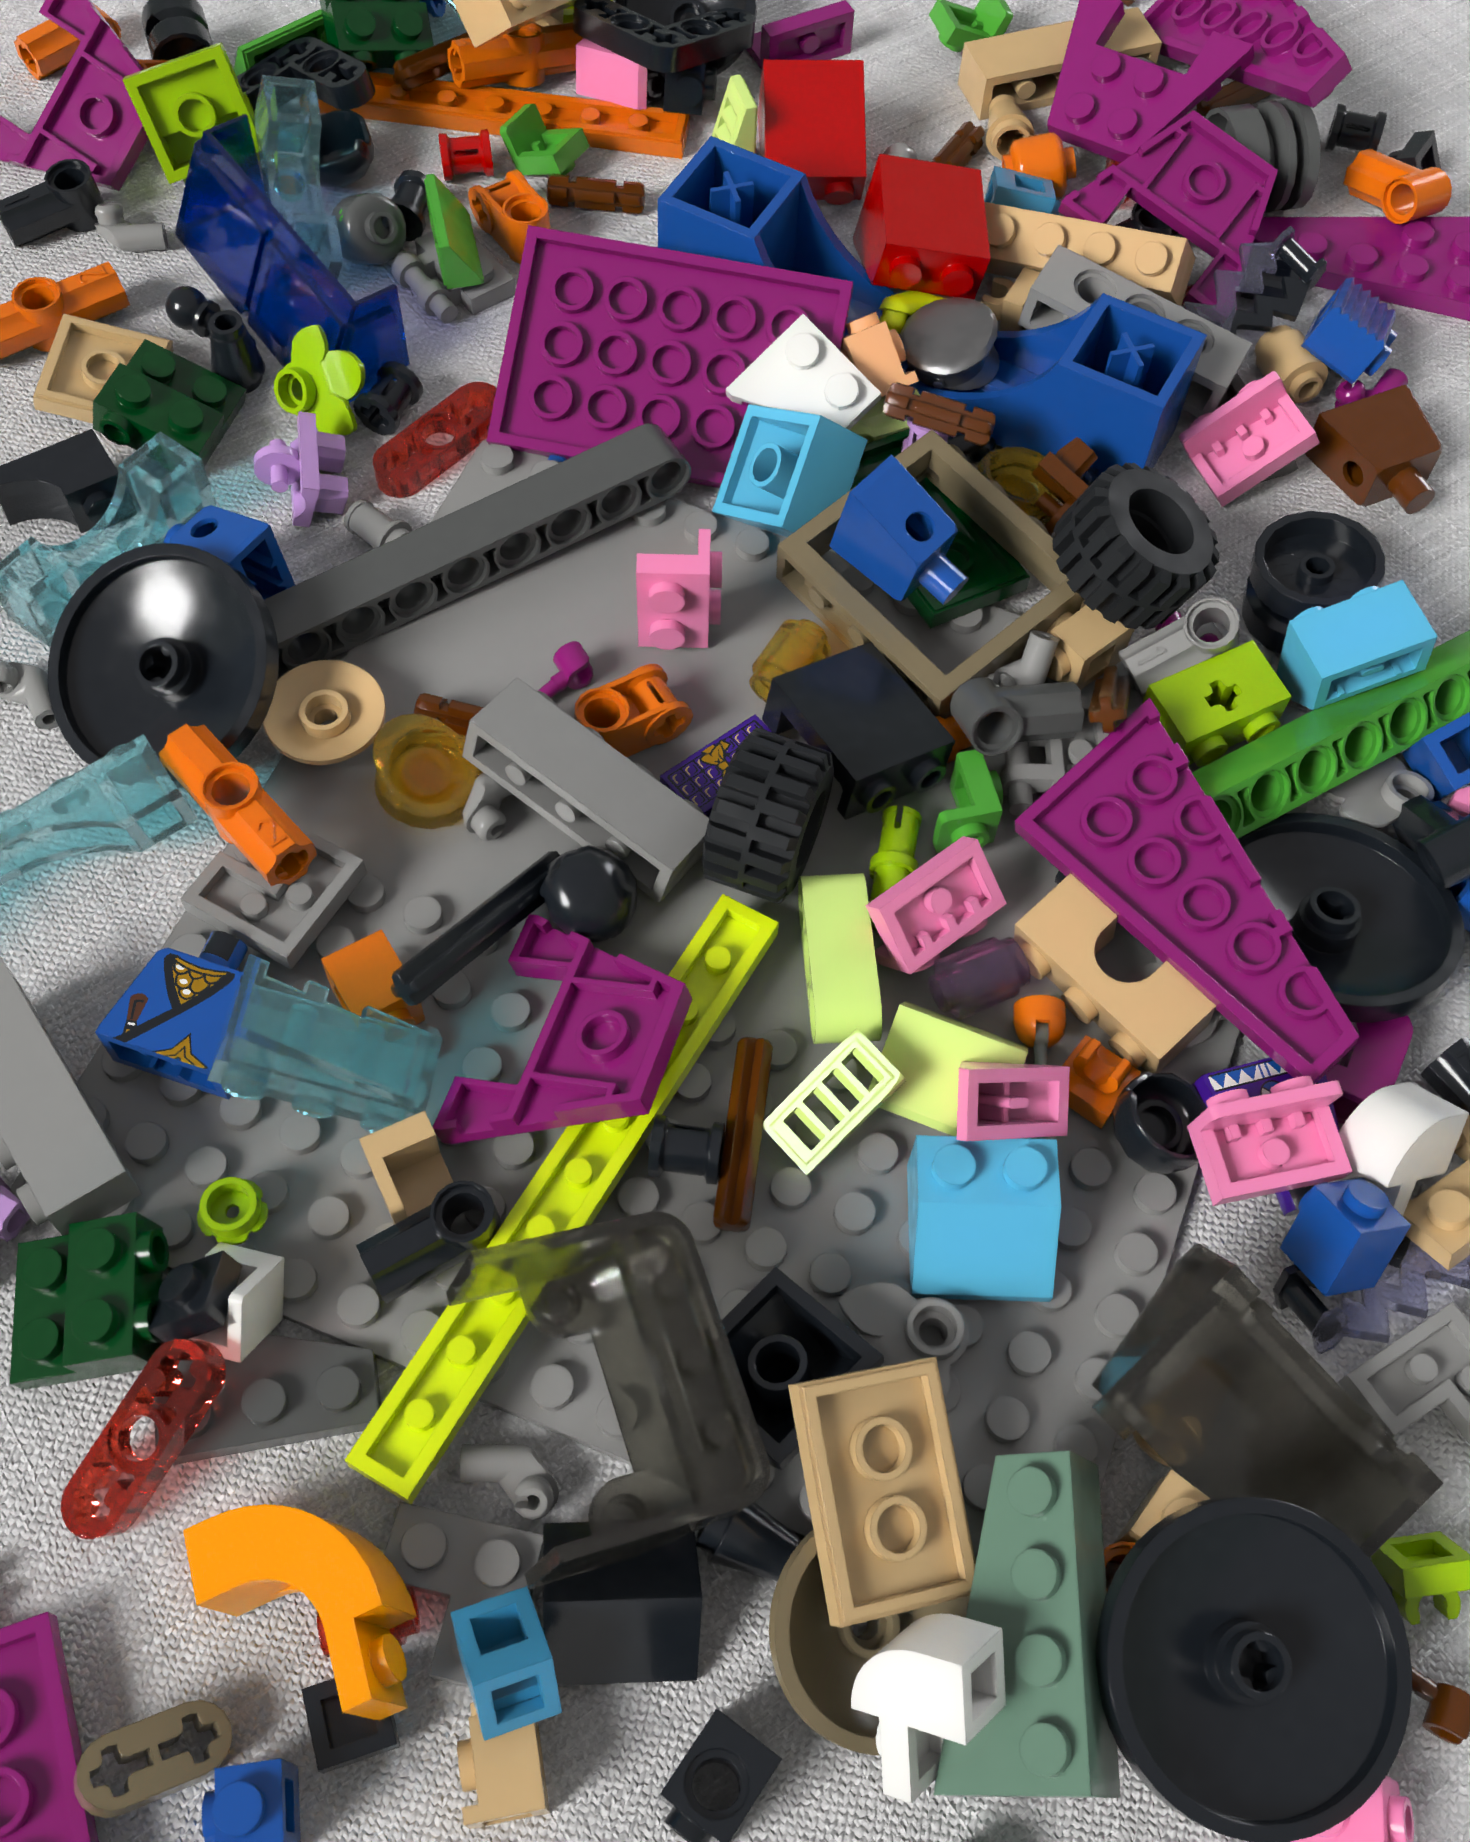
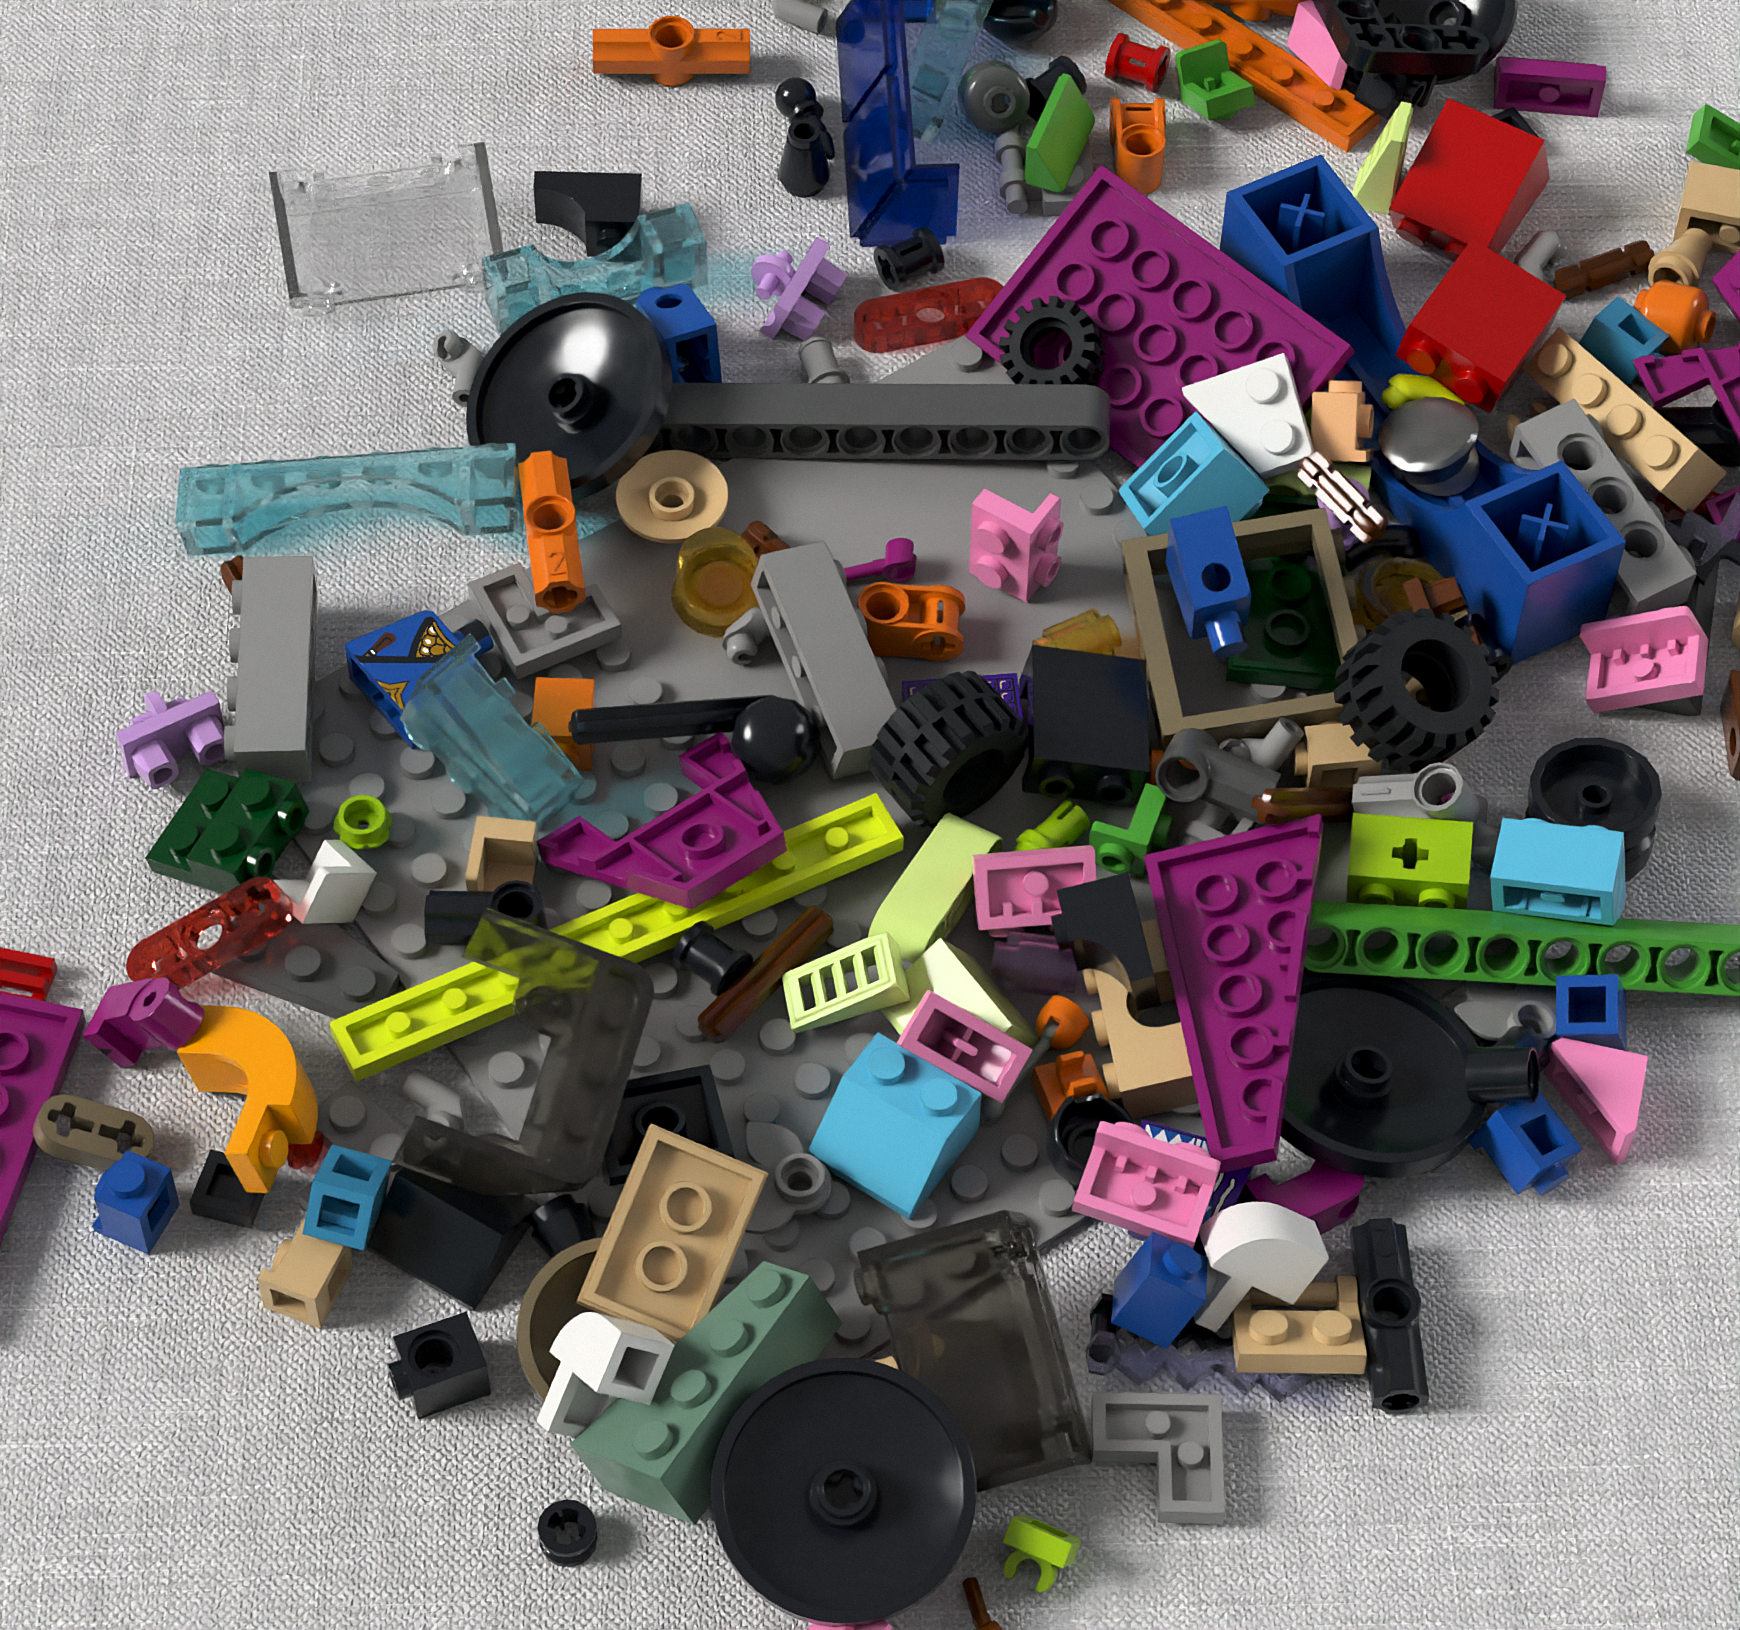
camera: 35 degrees right, 5 degrees down
(81, 364) = (688, 127): tan plate -> none
(125, 1579) = (142, 1018): none -> magenta leg
(166, 396) = (722, 179): dark green plate -> none
(195, 1297) = (298, 859): black plate -> none
(320, 382) = (856, 219): lime plate -> none
(577, 379) = (1041, 321): none -> black tyre
(596, 194) = (1229, 150): reddish brown axle -> none
(1052, 910) = (1107, 935): none -> black arch

